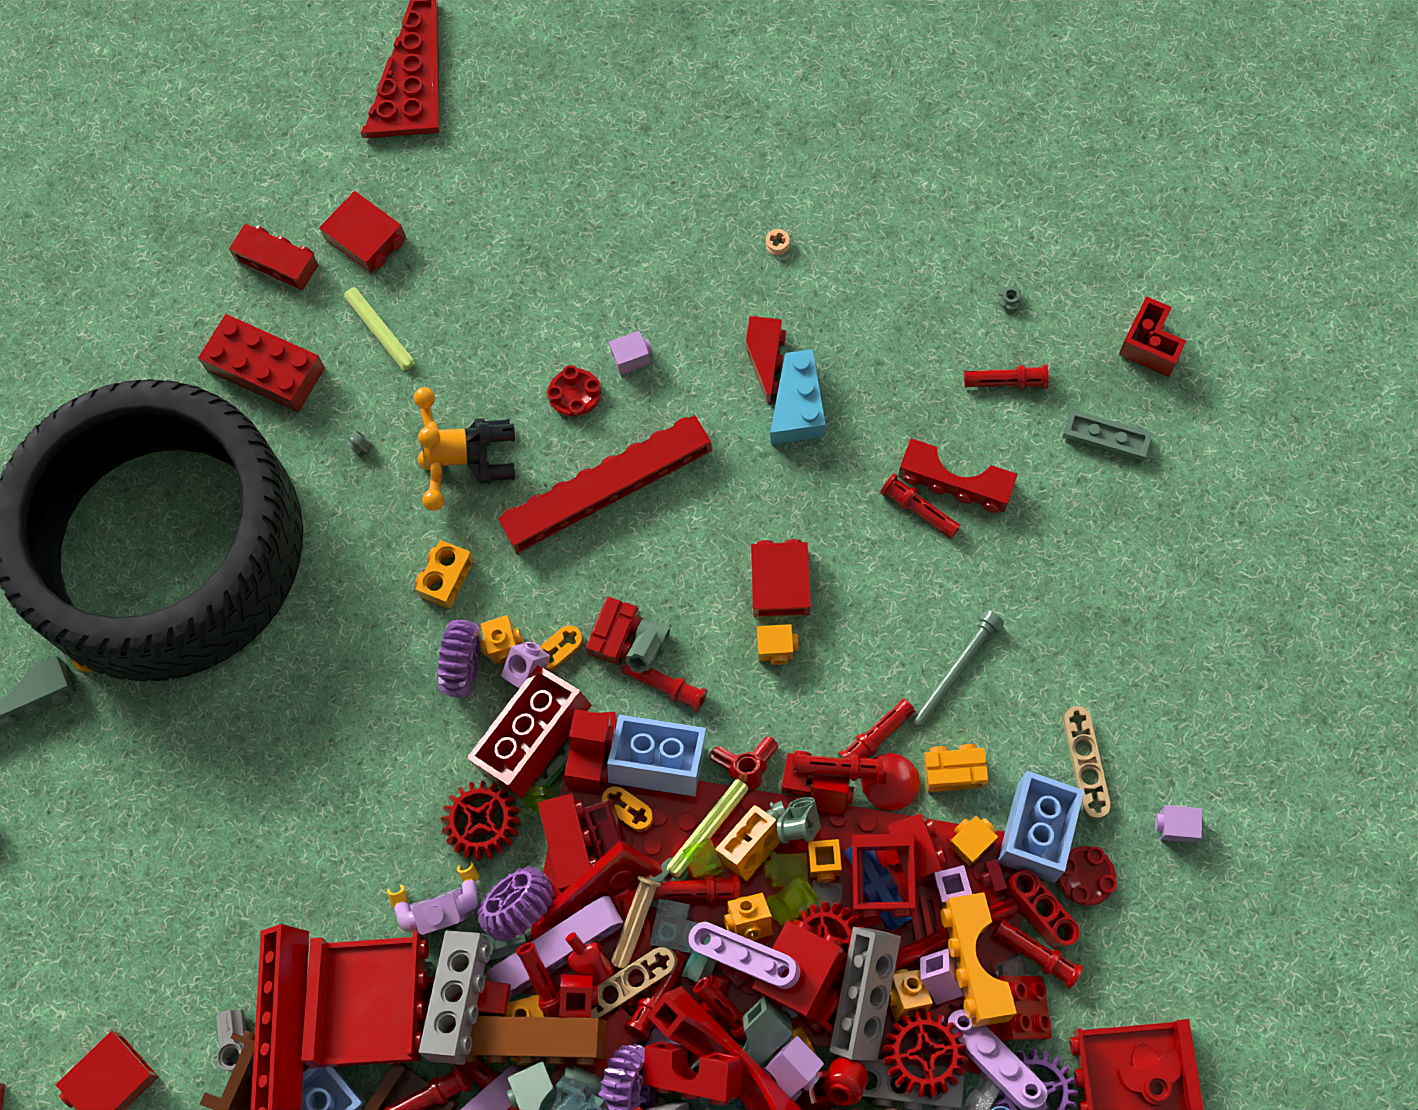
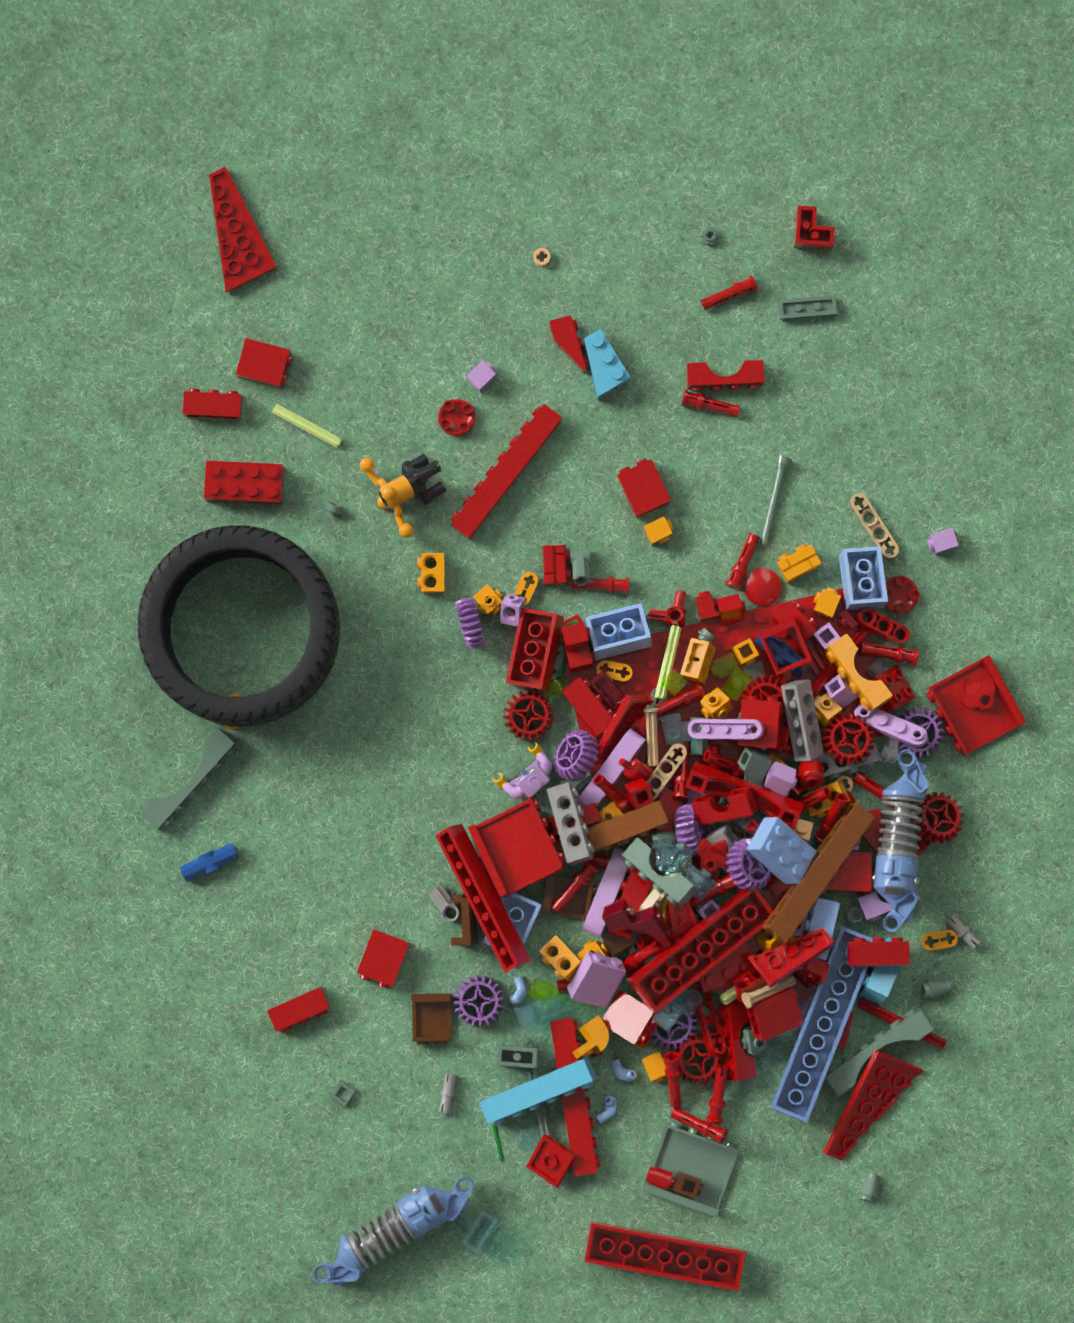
camera: 30 degrees left, 15 degrees up
(799, 821) = (721, 635): sand green piece -> none
(852, 767) = (708, 600): red pin -> none

